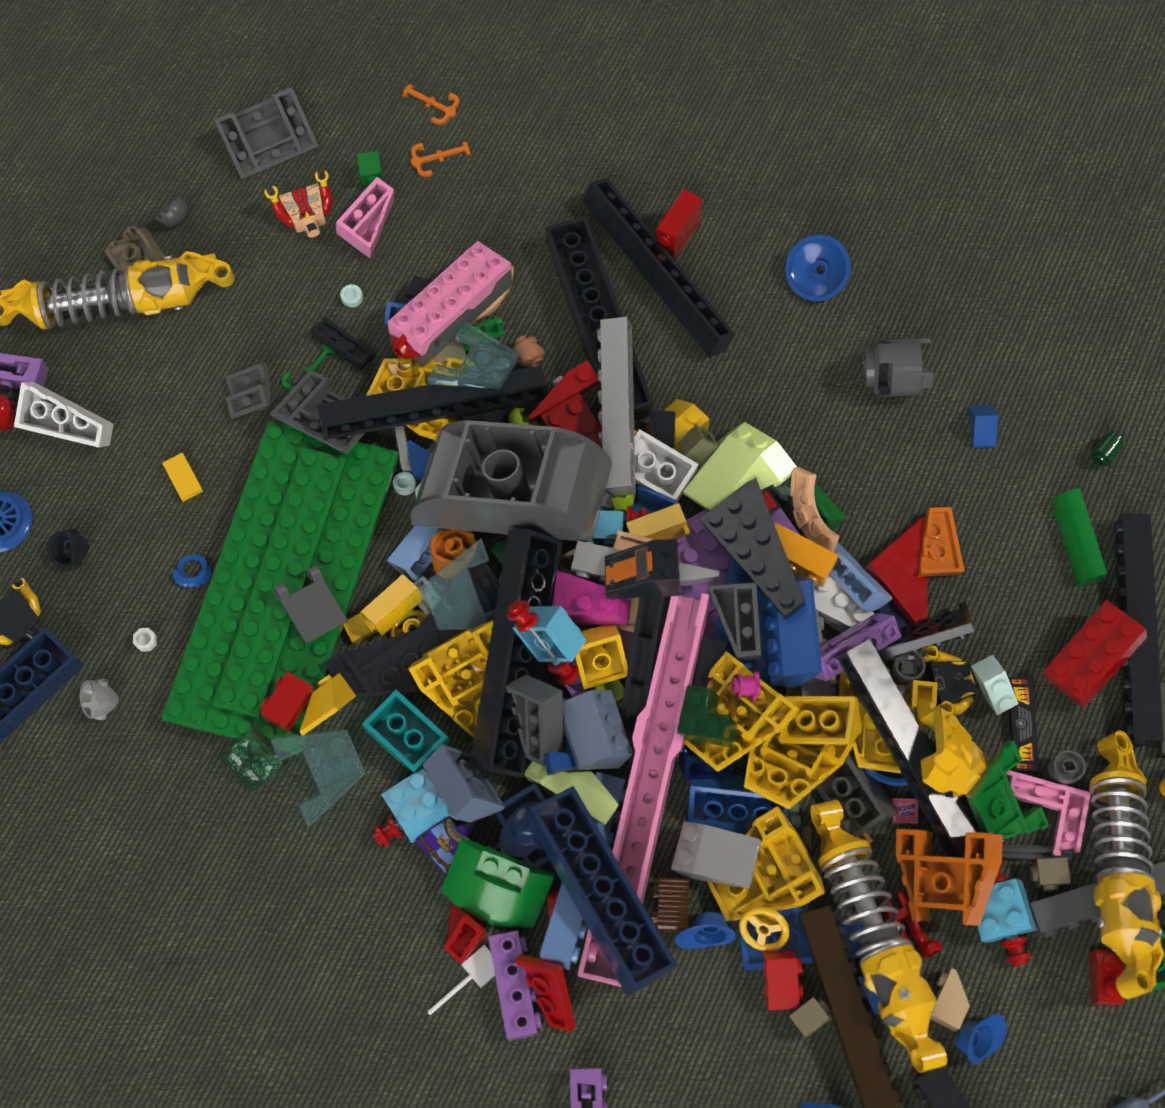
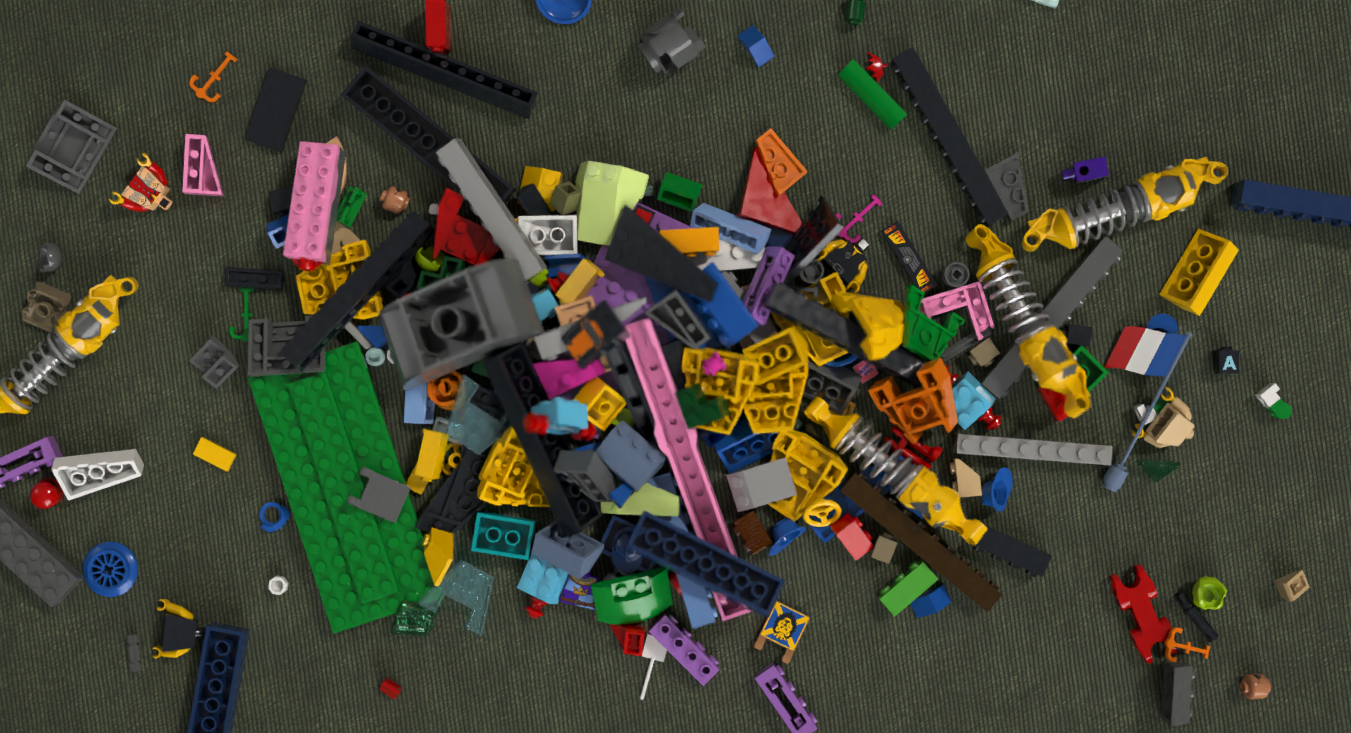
camera: 30 degrees left, 20 degrees up
(67, 548) = (176, 559): black helmet -> none
(97, 698) = (278, 646): light grey helmet -> none
(174, 819) = (390, 688): none -> red slope
(287, 701) = (412, 571): red brick -> none
(351, 295) = (232, 236): light aqua tile -> none
(369, 167) = (172, 125): green brick -> none
(450, 111) = (195, 32): orange piece -> none
(473, 213) = (275, 109): none -> black tile
(483, 367) = (376, 240): clear light blue wing -> none
(552, 990) = (710, 638): red wing -> none
(639, 1038) = (784, 628): none -> flag
(806, 512) = (677, 205): light nougat tile -> none
(809, 1082) = (907, 587): none -> bright green brick
(965, 654) = (843, 233): none -> dark pink piece
(994, 684) = (876, 247): light aqua brick -> none
(1050, 1018) = (1032, 449): none -> light grey brick
(1095, 654) = (930, 180): red brick -> none
(1098, 516) = (876, 67): none -> red piece

